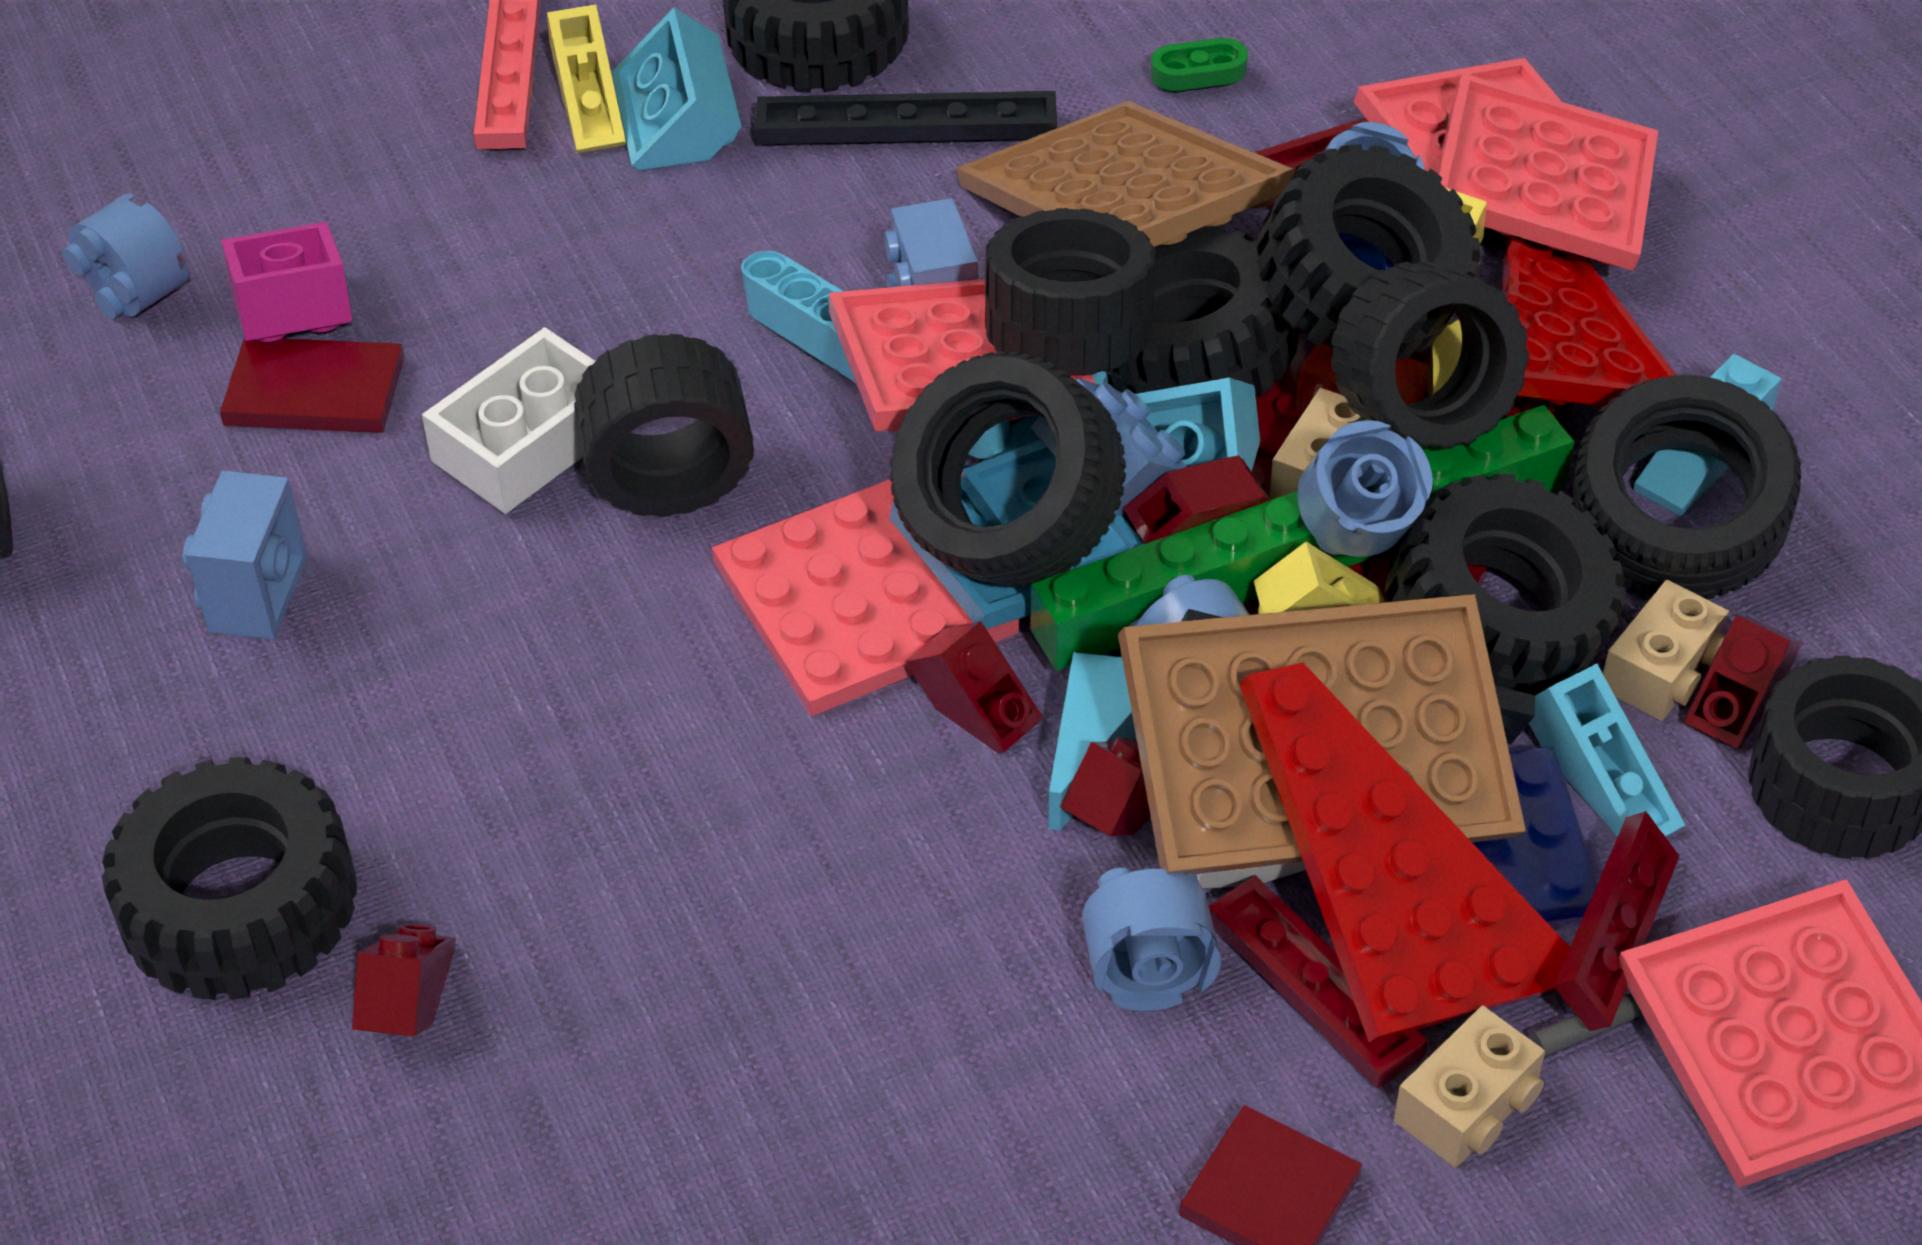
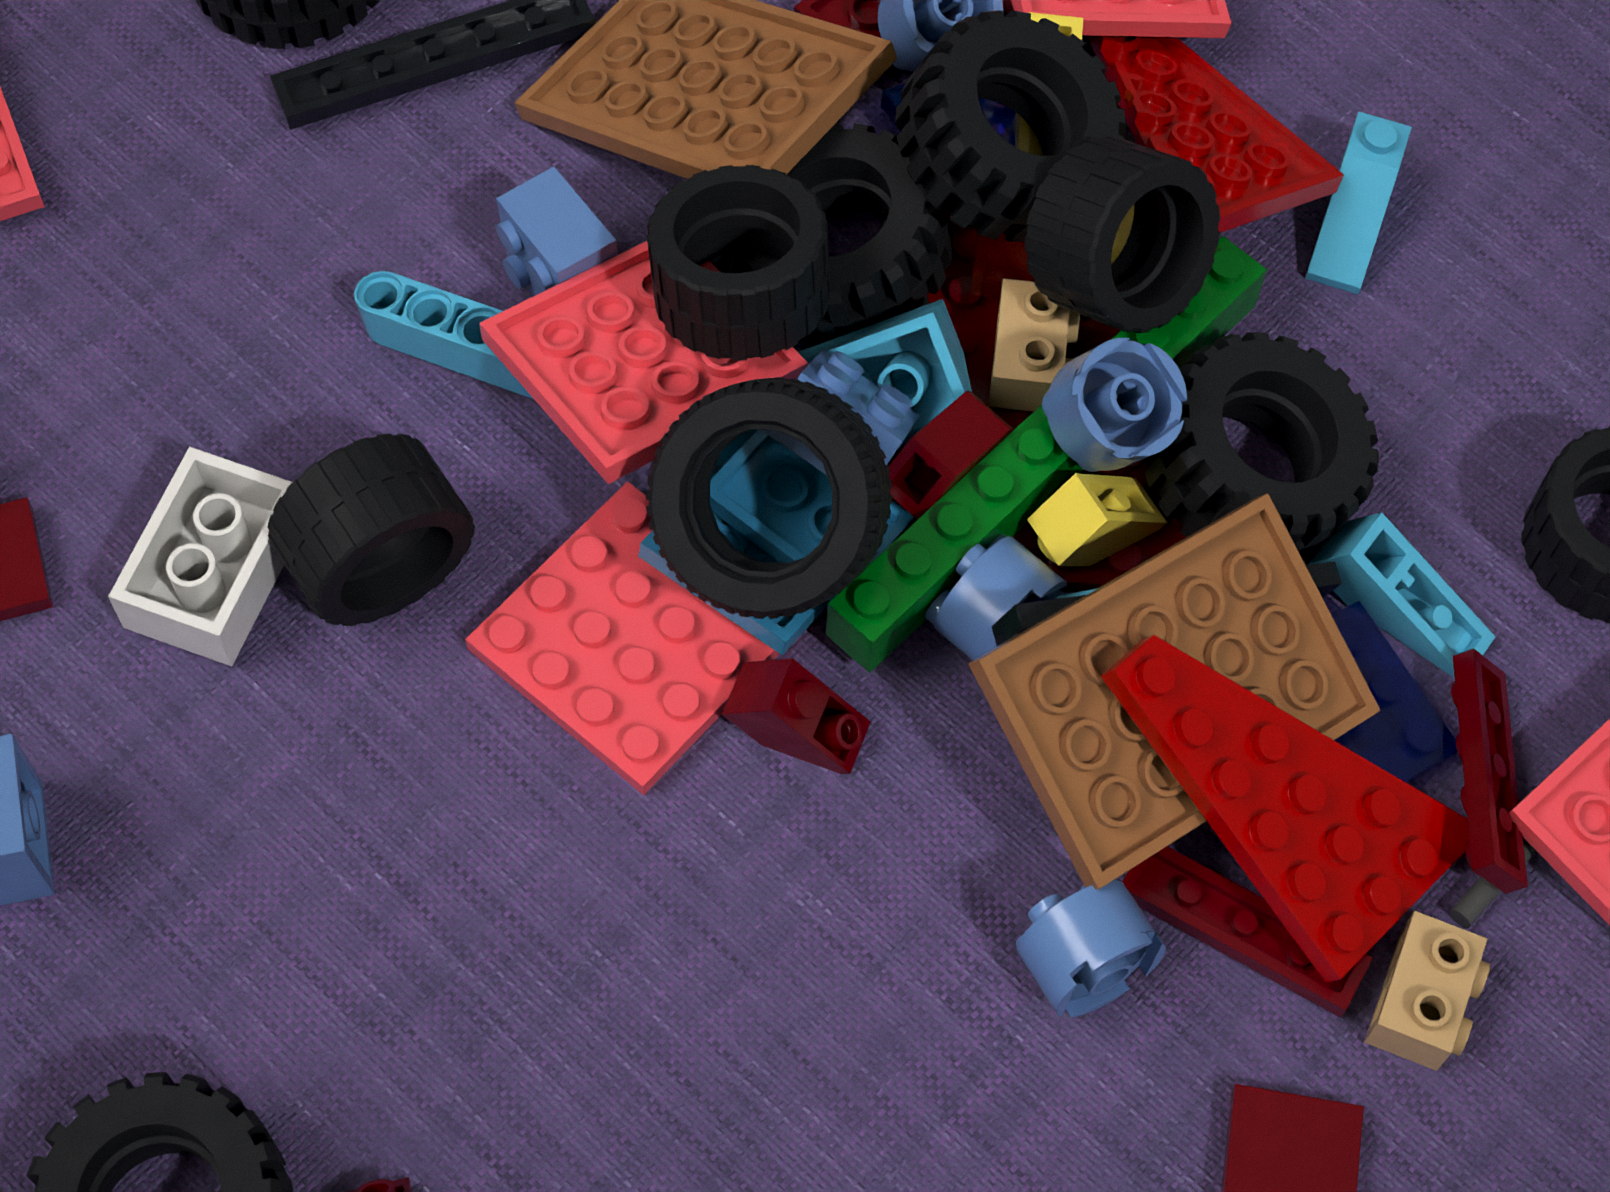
camera: 25 degrees left, 15 degrees up
(585, 78) = (76, 108): light yellow slope -> none
(676, 95) = (180, 98): medium azure slope -> none
(1093, 711) = (929, 705): medium azure slope -> none
(1110, 788) = (982, 782): dark red slope -> none
(1665, 650) = (1415, 450): tan brick -> none
(1696, 416) = (1421, 218): black tyre -> none
(1741, 680) = (1493, 467): dark red slope -> none

